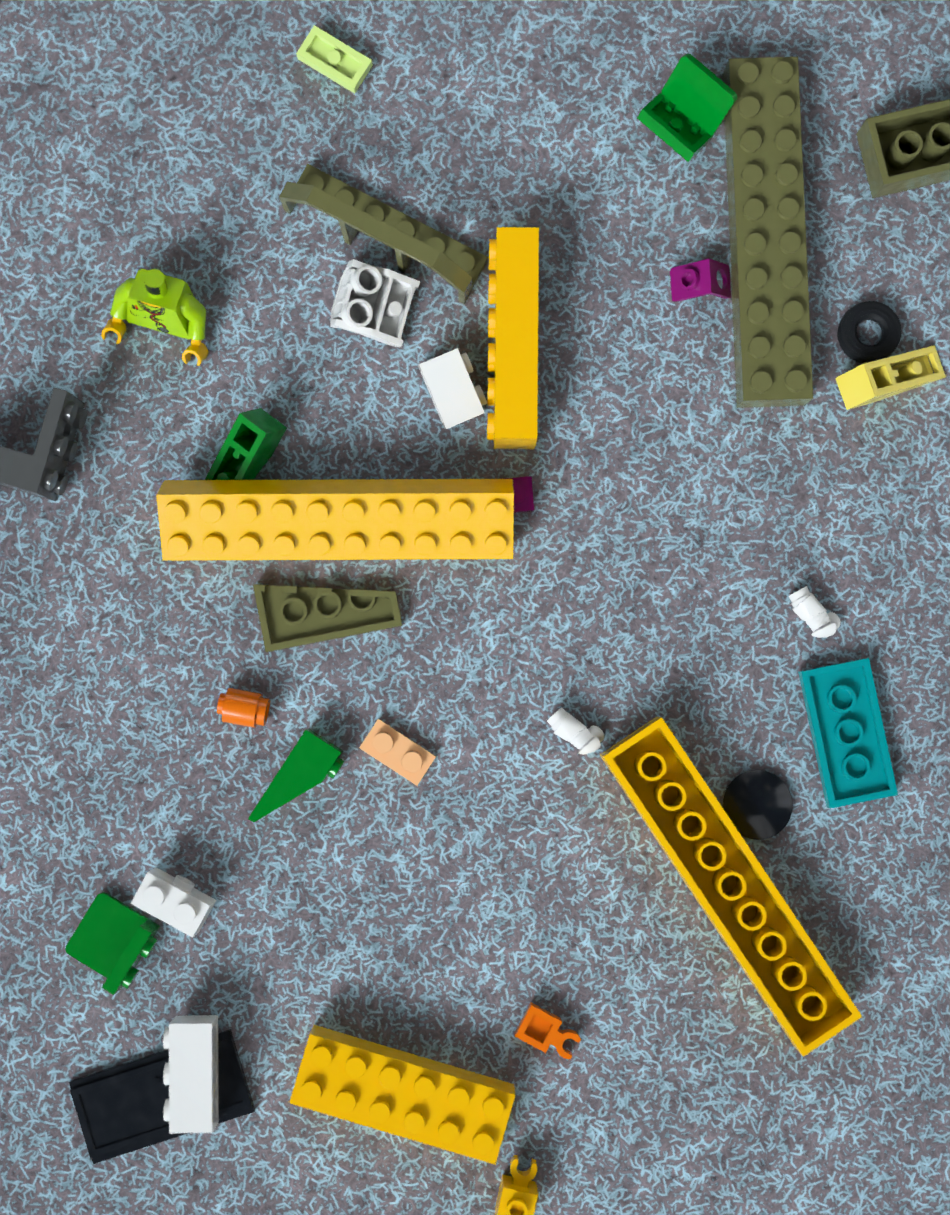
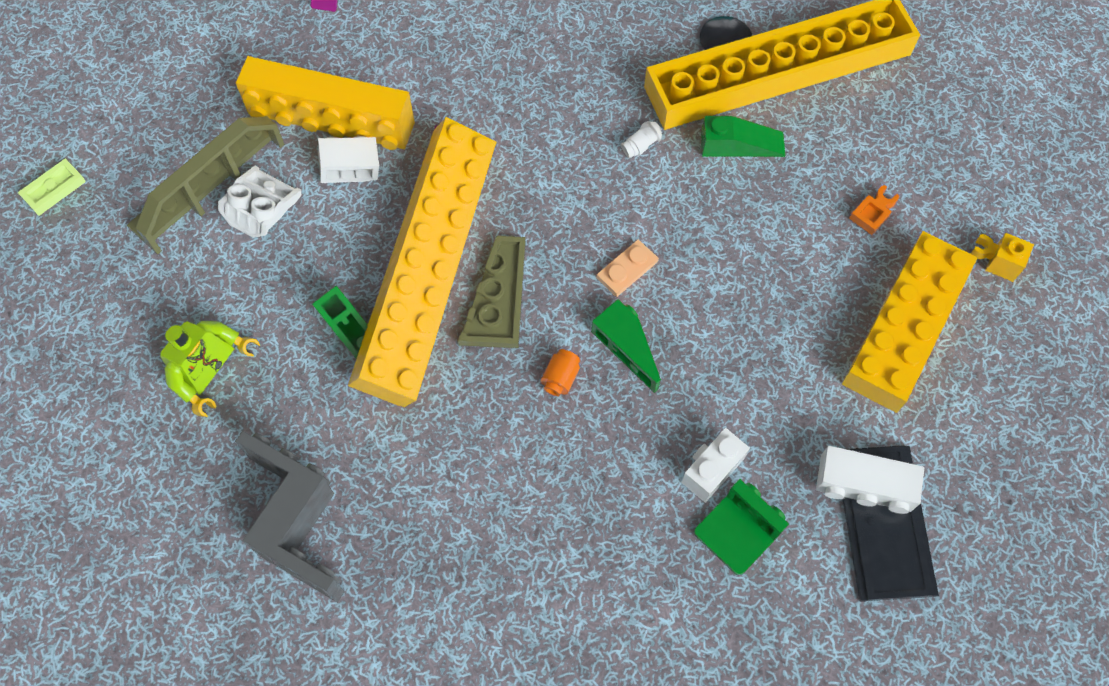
camera: 75 degrees left, 20 degrees down
(605, 854) = (739, 138): none -> green slope

